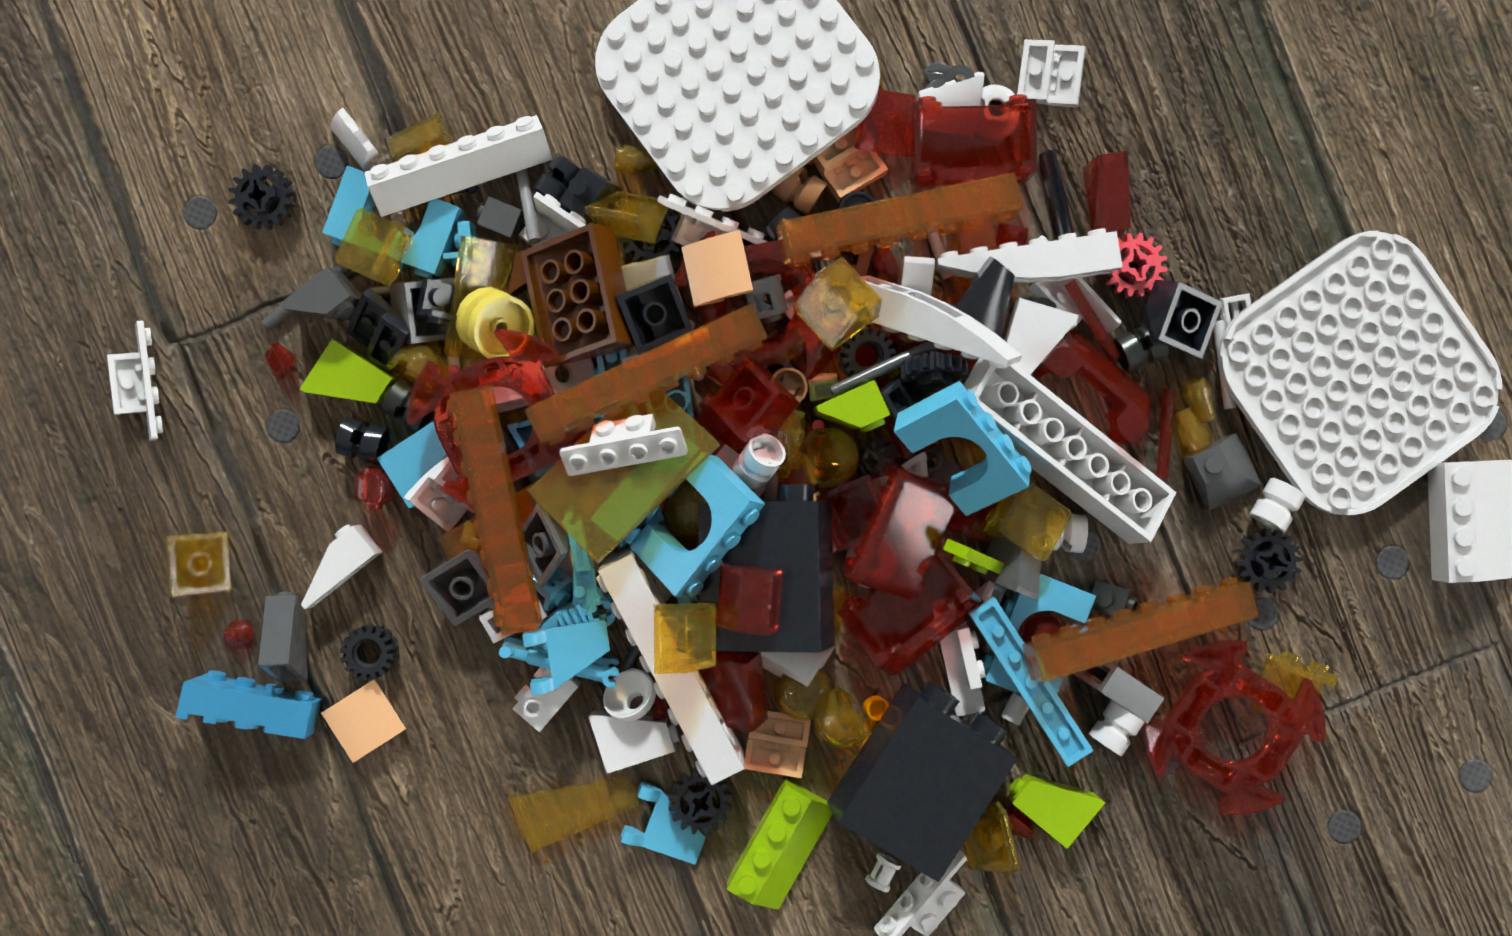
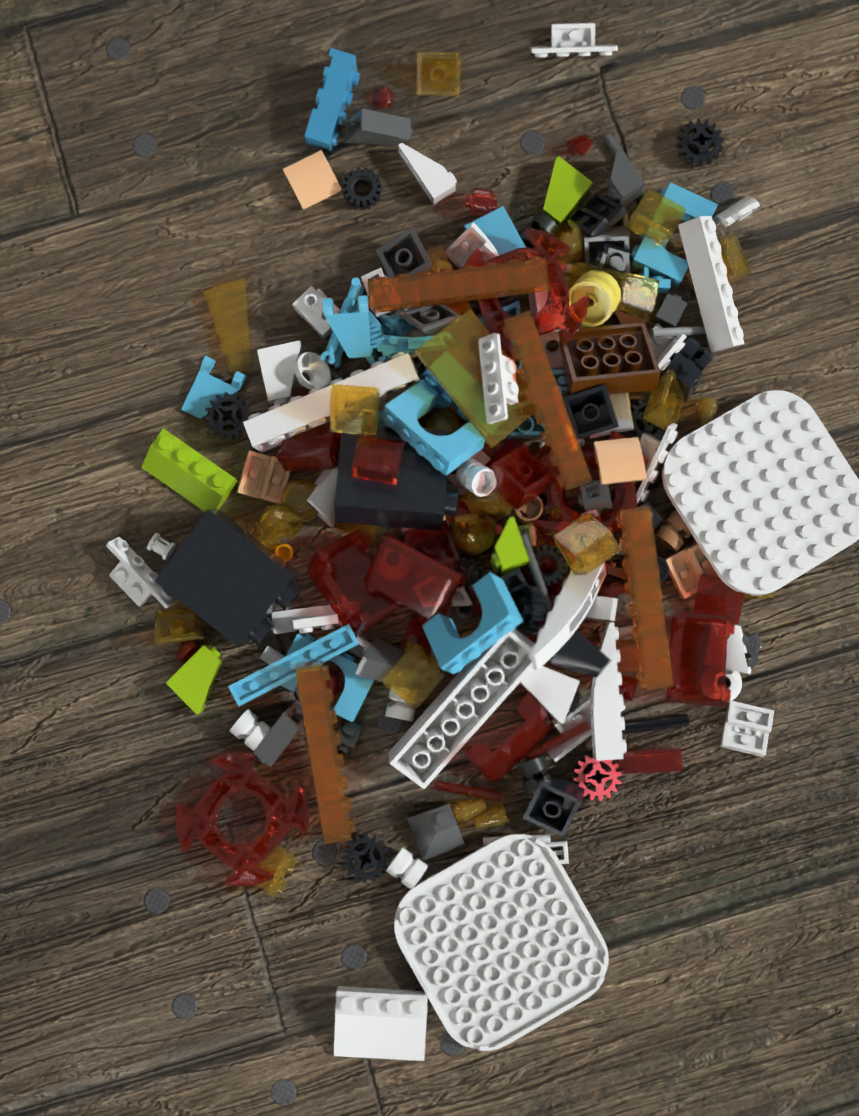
camera: 95 degrees right, 5 degrees down
(357, 439) = (517, 193): black wheel -> none
(967, 556) = (386, 635): lime wing -> none

